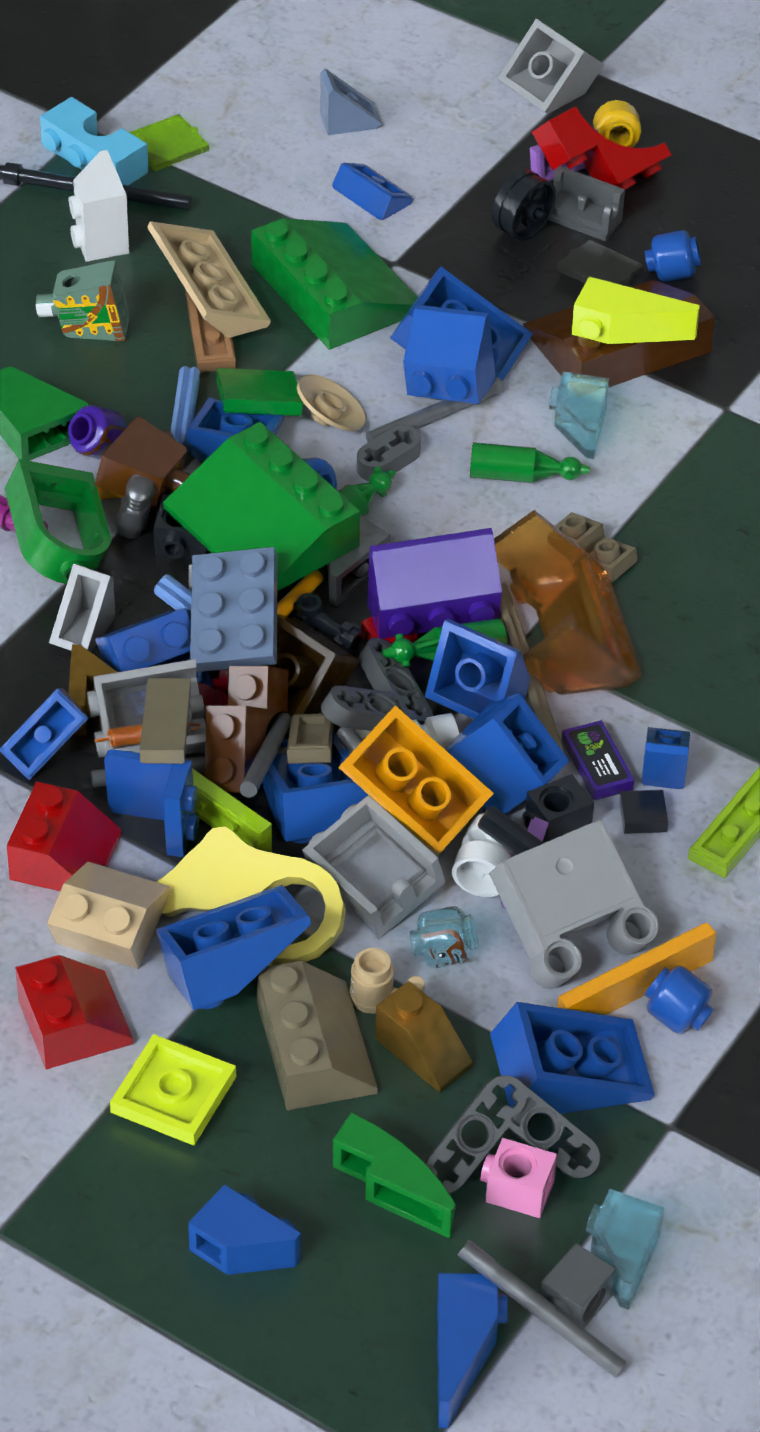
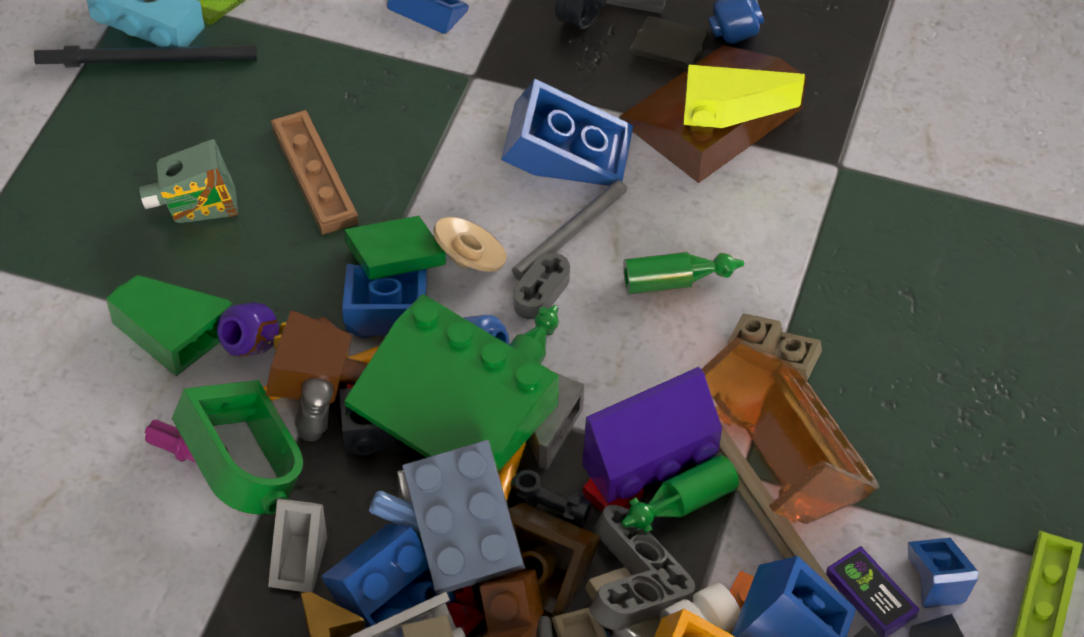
camera: 15 degrees left, 5 degrees up
(99, 210) = (176, 82): white slope -> none
(185, 404) = (324, 278): medium blue axle -> none
(210, 278) = (307, 133): tan slope -> none
(329, 278) = (421, 107): green slope -> none
(449, 355) = (572, 170): blue slope -> none
(474, 670) = (729, 532): blue slope -> none
(580, 409) = (711, 200): clear light blue slope -> none

